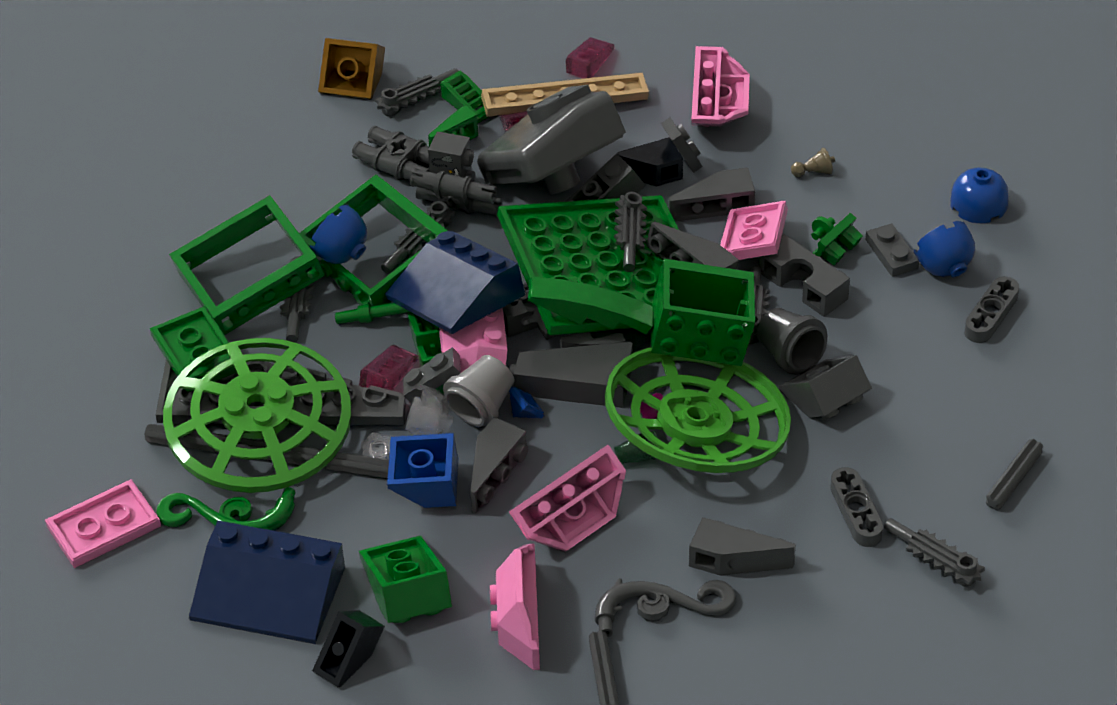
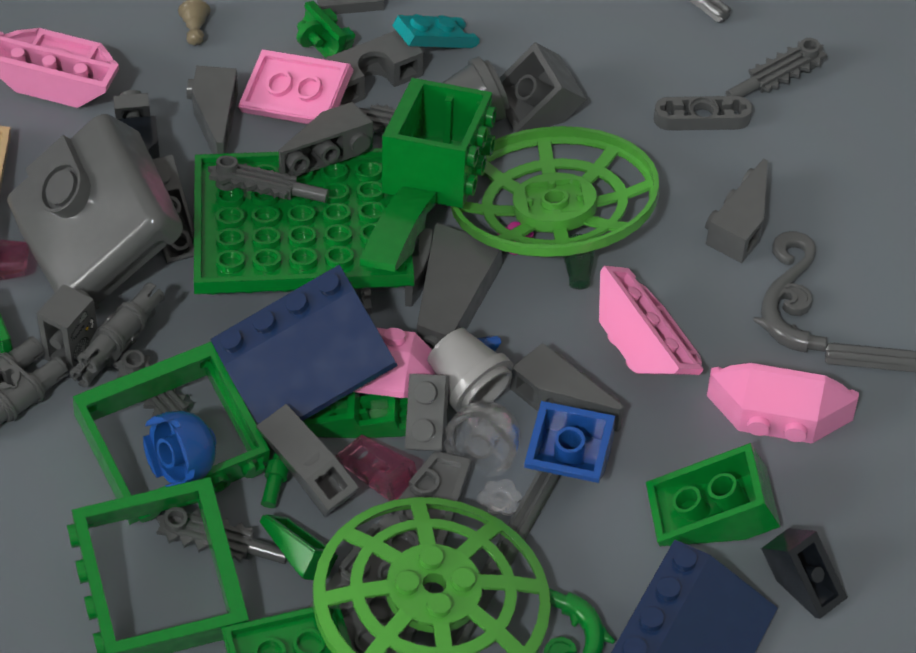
camera: 80 degrees left, 5 degrees up
(290, 329) = (296, 544): none -> green slope
(360, 320) = (308, 460): none -> dark grey slope
(861, 302) = (434, 31): none -> teal hinge

